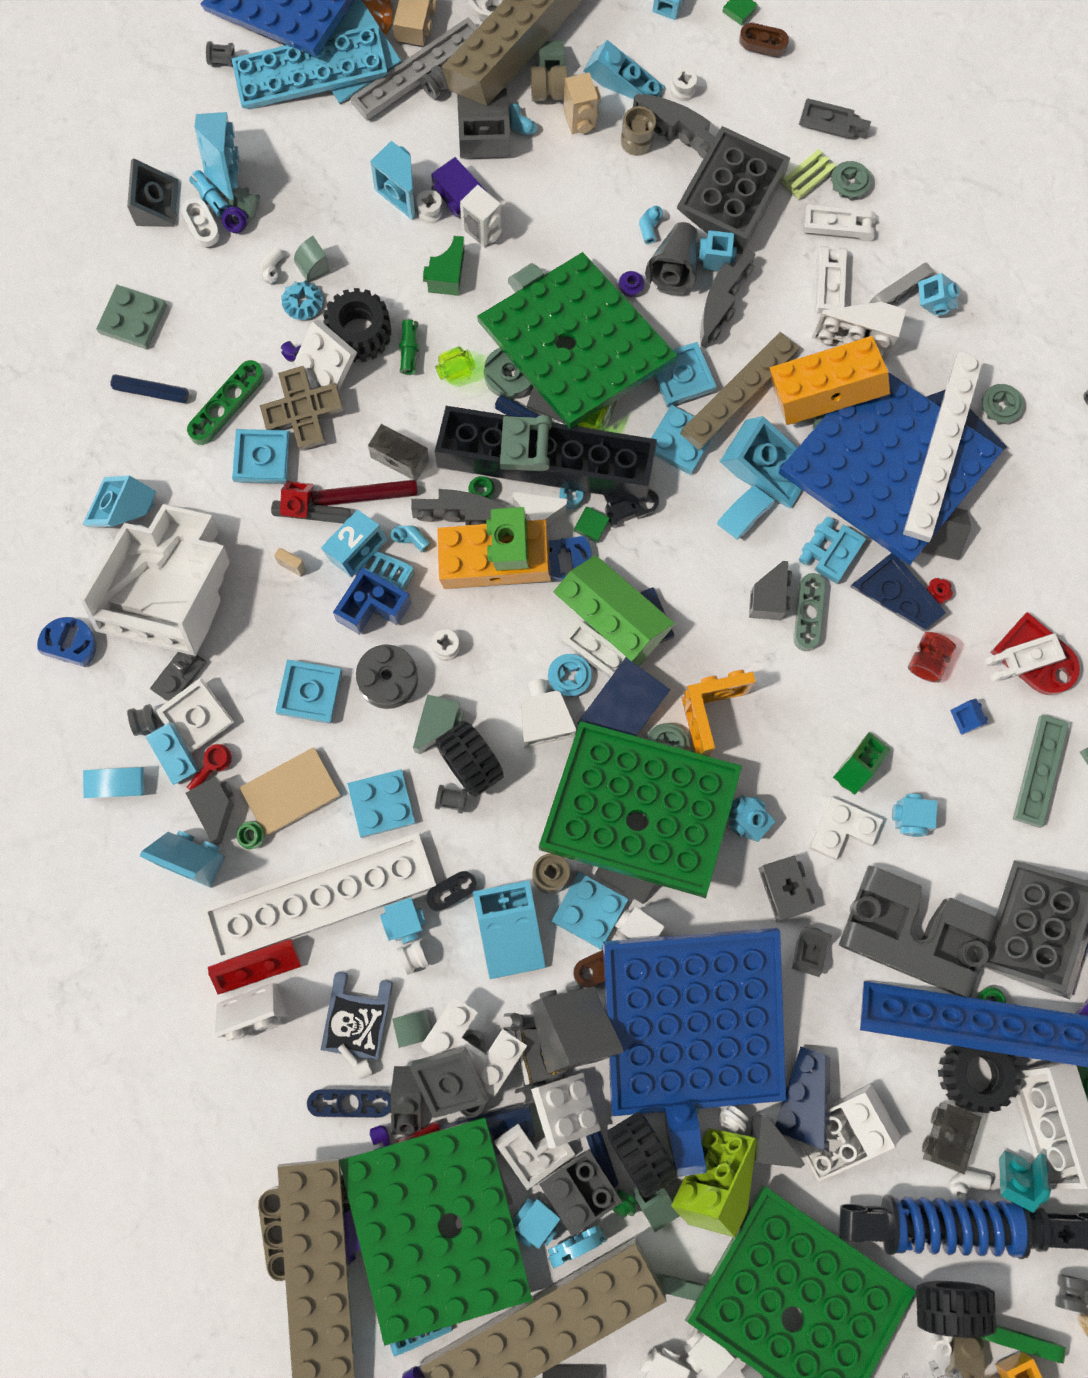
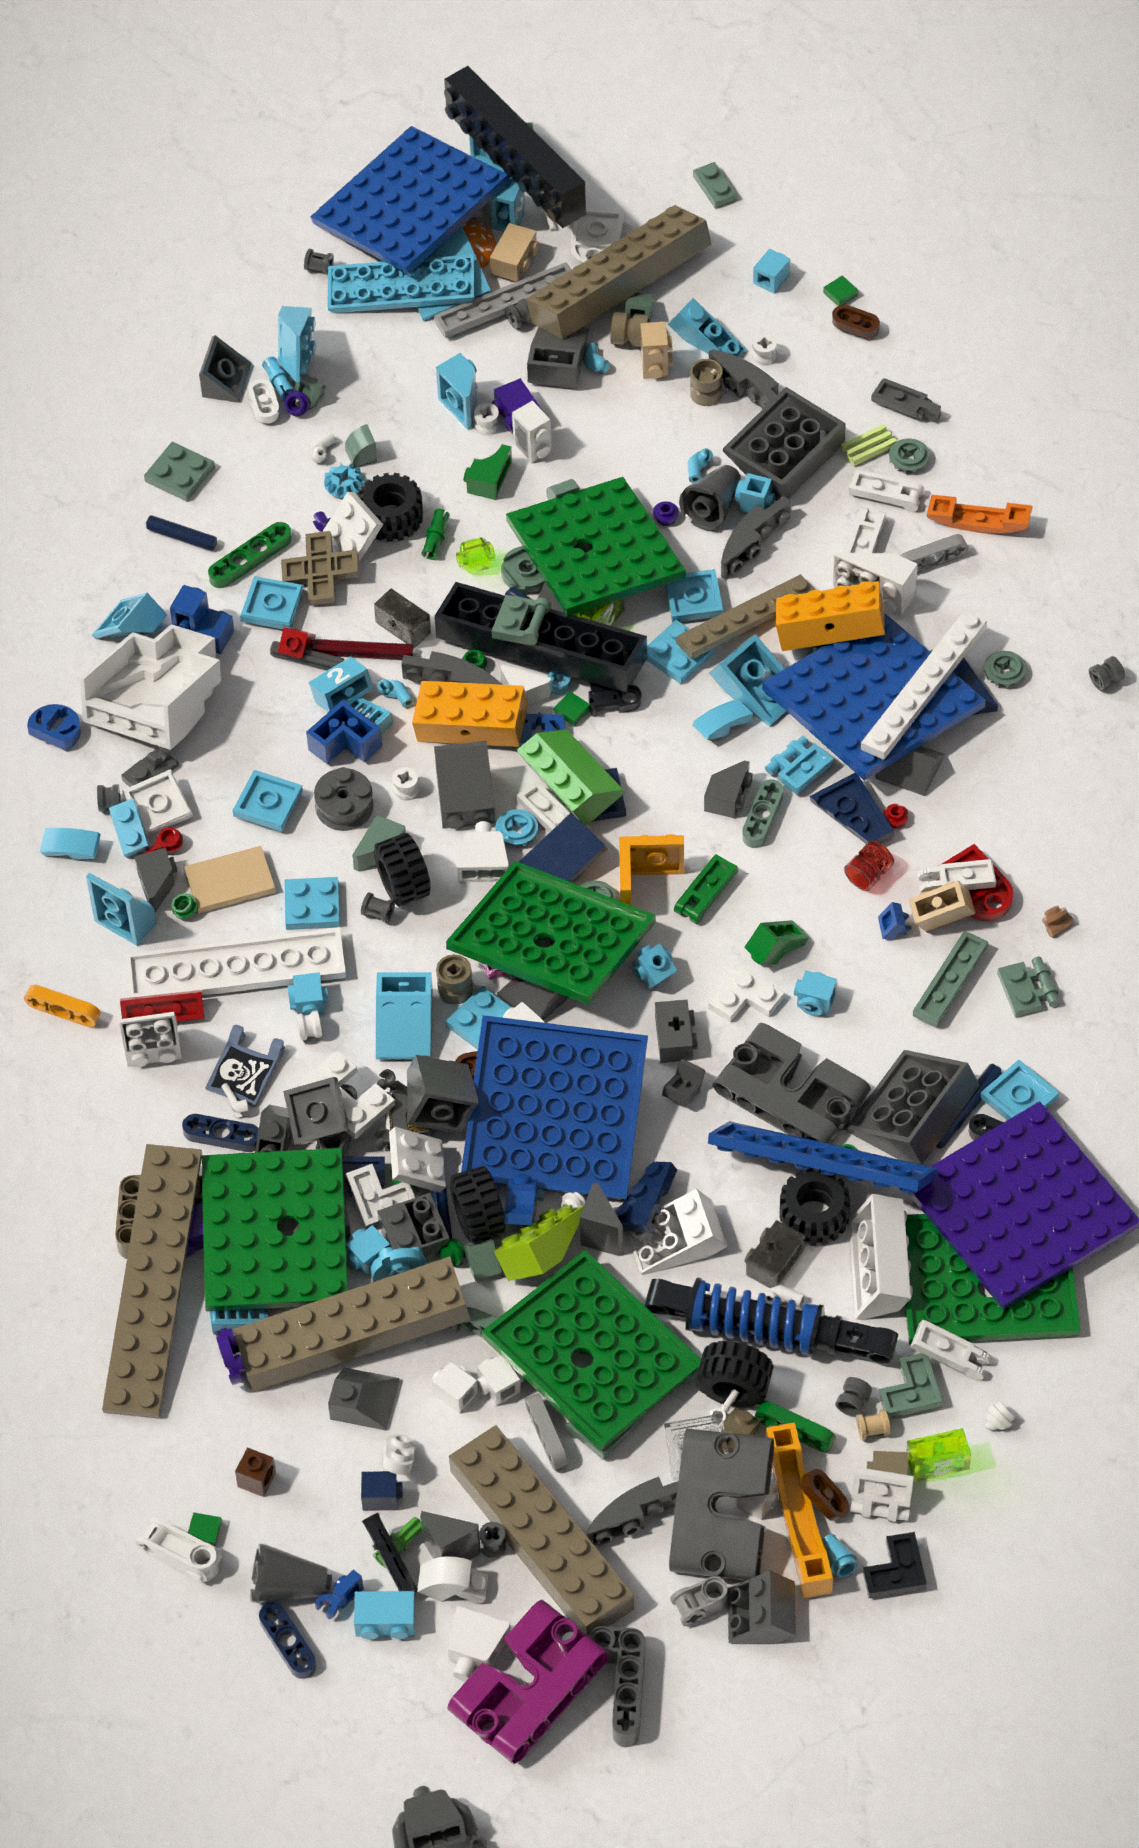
camera: 20 degrees right, 20 degrees down
(147, 983) = (62, 1005): none -> light orange beam
(184, 490) = (193, 613): none -> blue brick
(290, 561) = (277, 692): tan tile -> none
(412, 1028) = (289, 1076): sand green brick -> none
(448, 885) = (358, 983): black beam -> none
(508, 642) = (464, 784): none -> dark grey slope
(513, 554) = (483, 691): bright green brick -> none
(776, 711) = (706, 888): none -> green plate
(937, 239) = (979, 518): none -> orange slope
(938, 294) = (963, 563): medium azure brick -> none
(1018, 695) = (941, 906): none -> tan brick
(1024, 1182) = (831, 1292): teal bracket -> none

